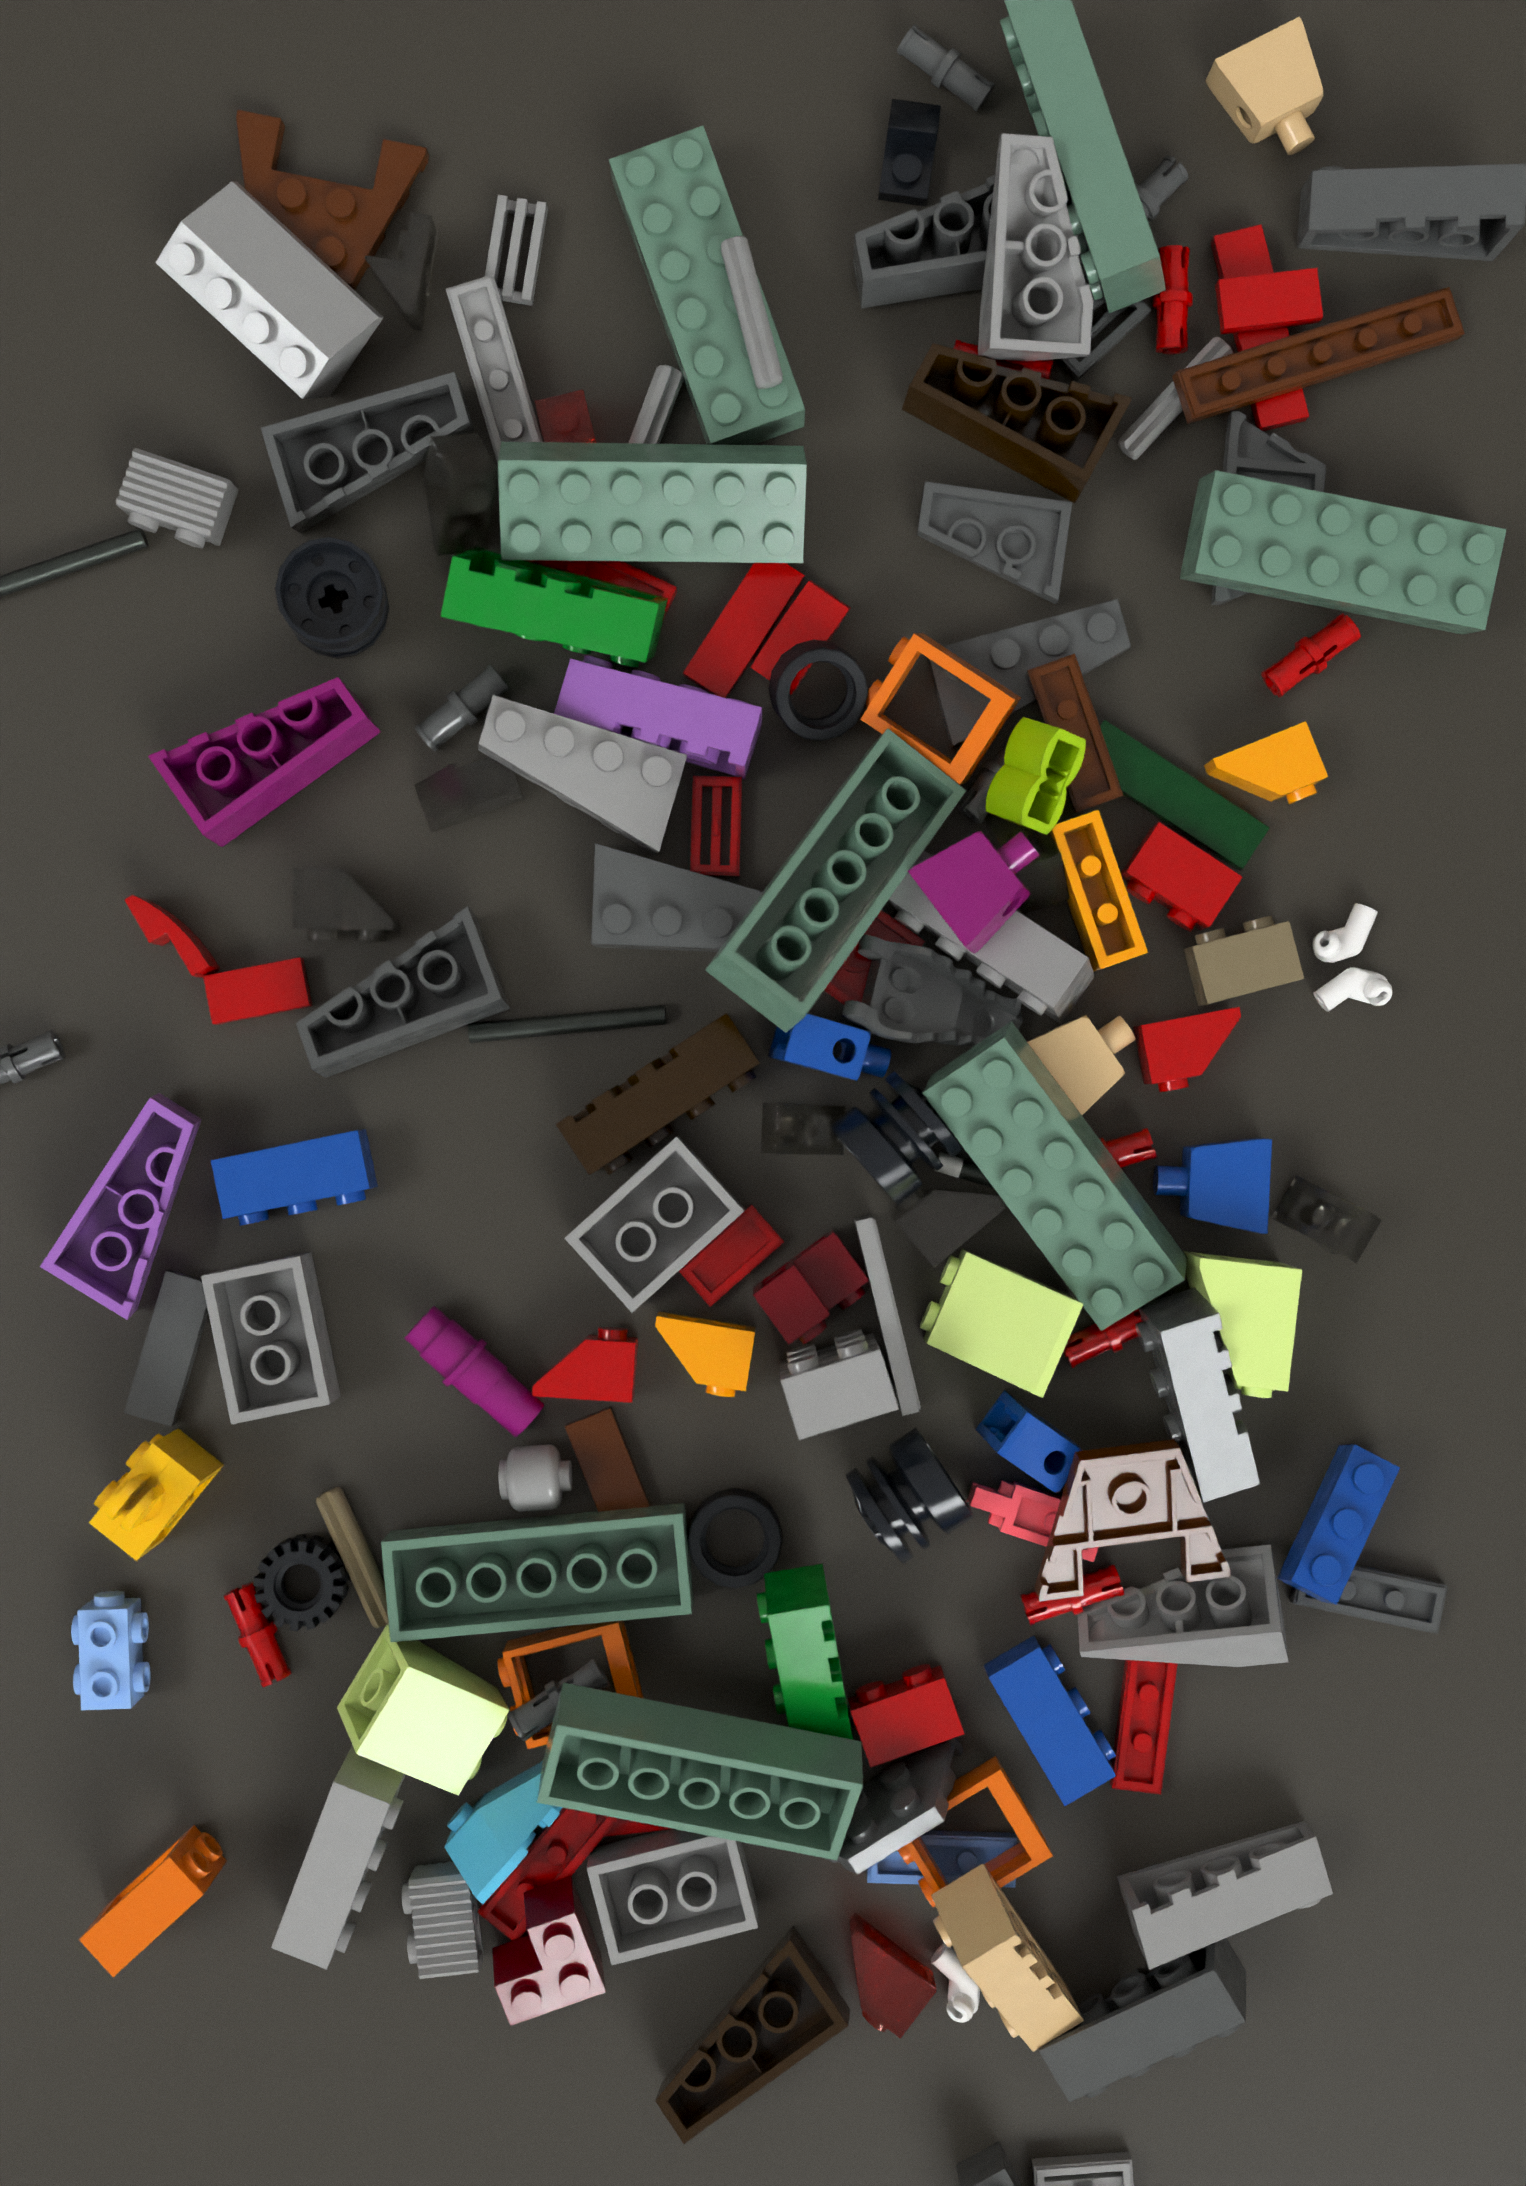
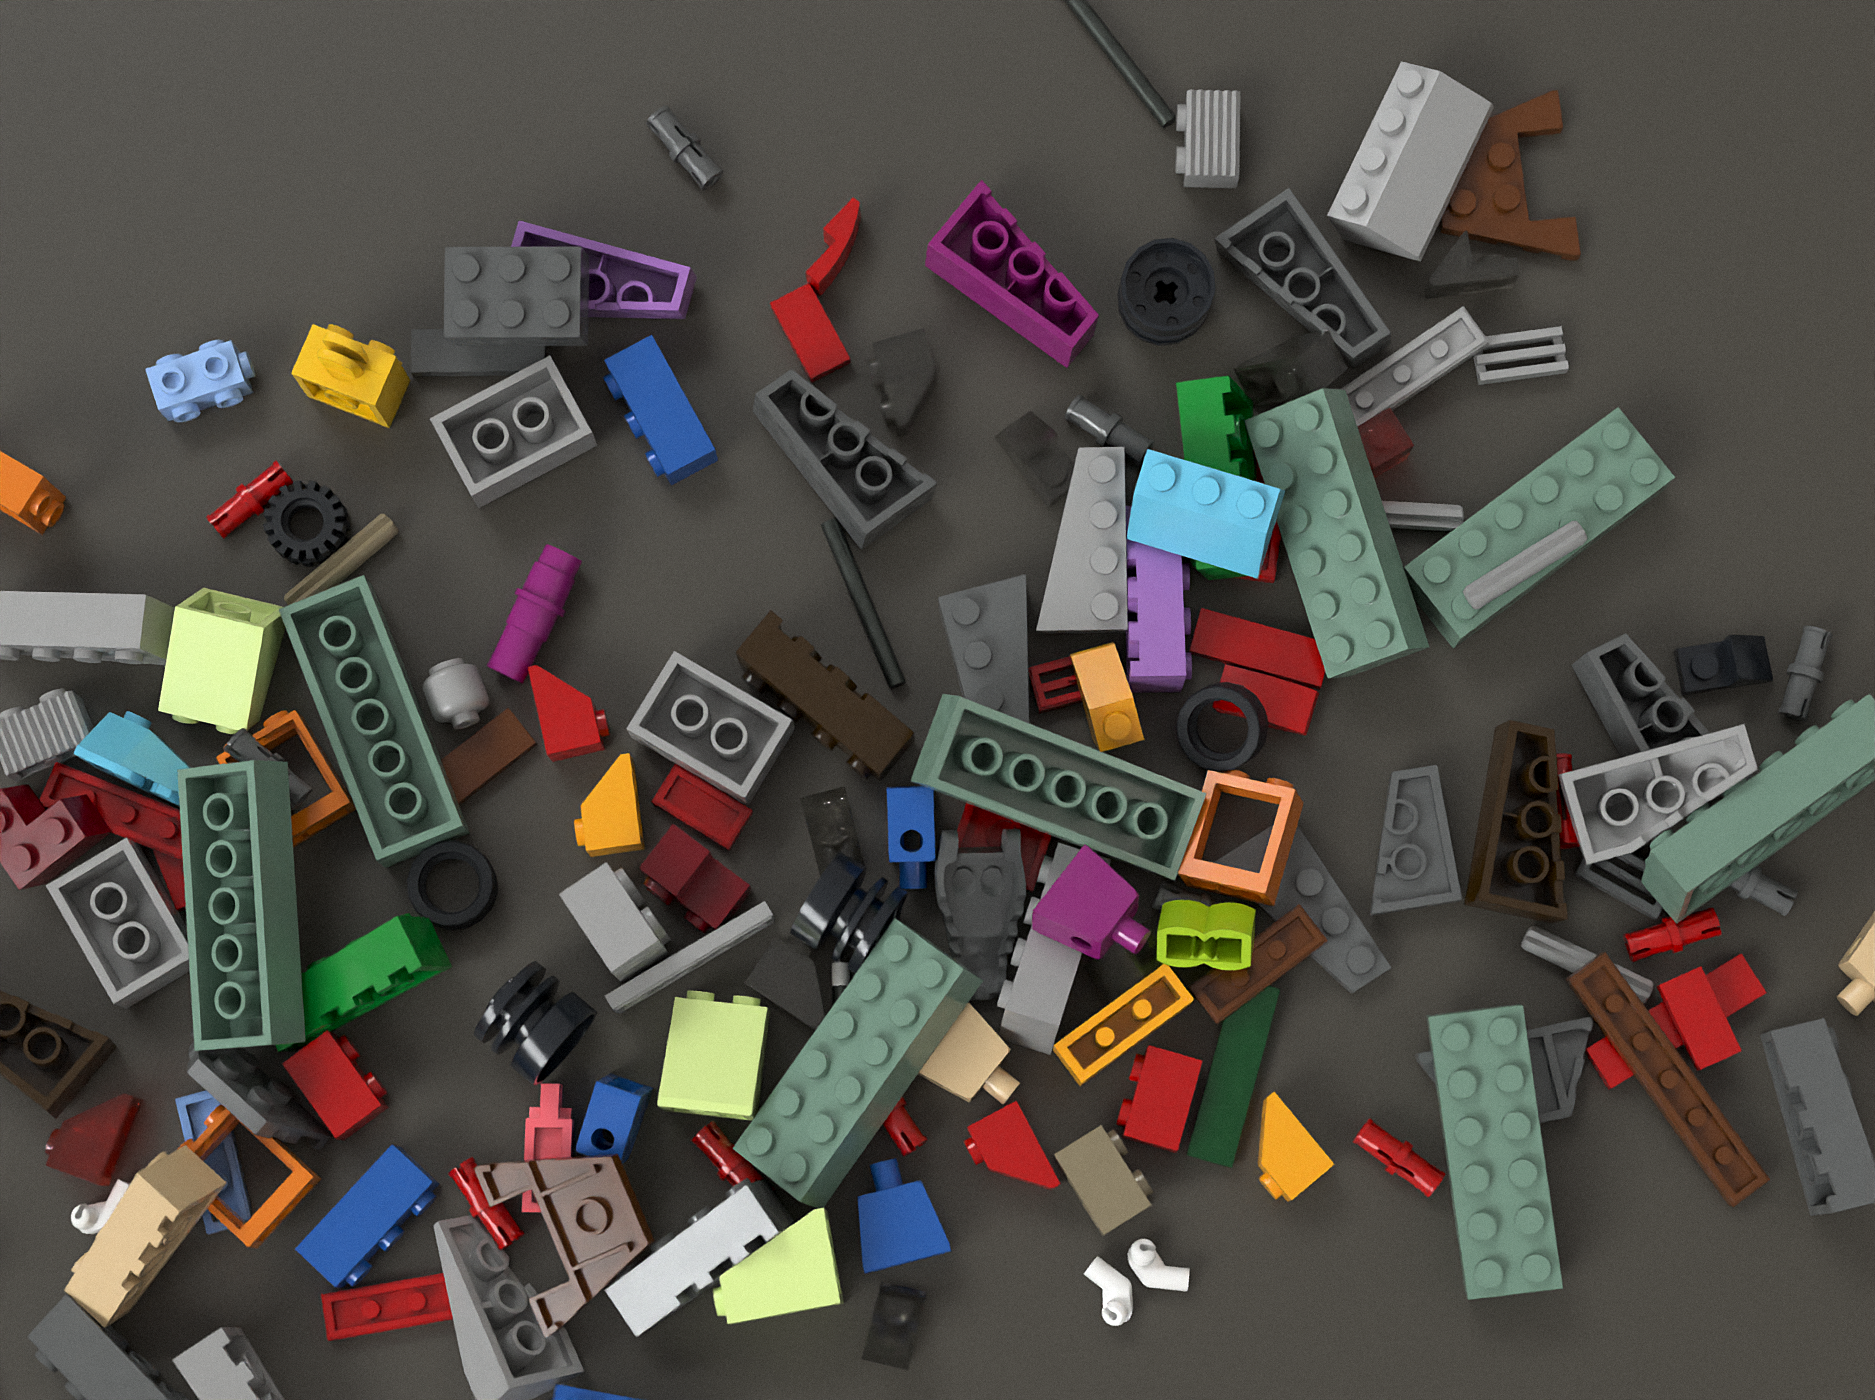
camera: 75 degrees right, 10 degrees down
(124, 1294) = (516, 296): none -> dark grey brick
(593, 631) = (1203, 513): none -> medium azure slope
(751, 800) = (1106, 697): none -> light orange slope

